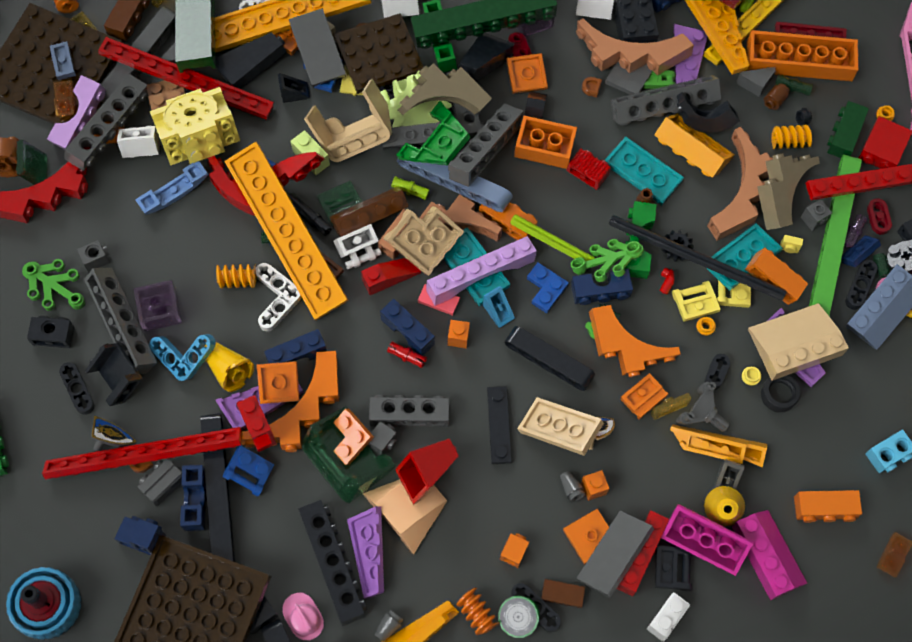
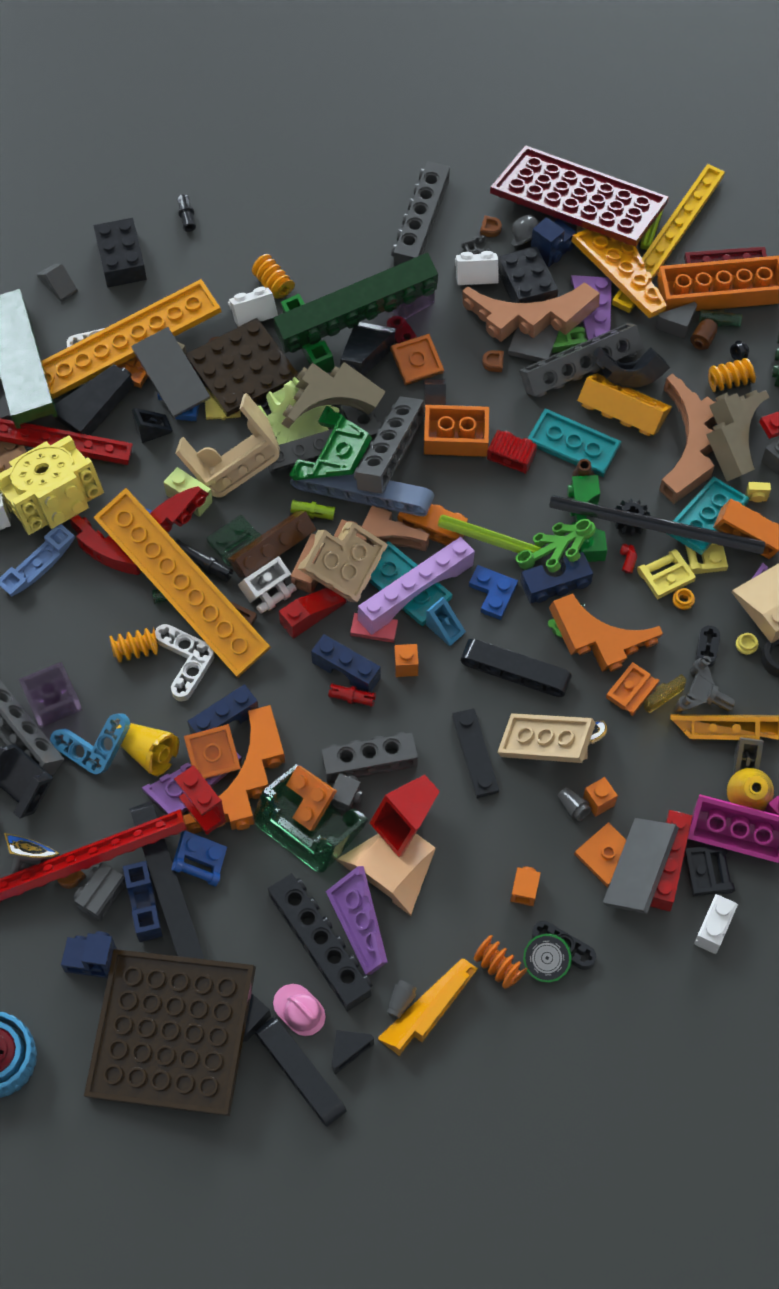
camera: 10 degrees left, 5 degrees down
(563, 593) = (591, 923): reddish brown tile -> none

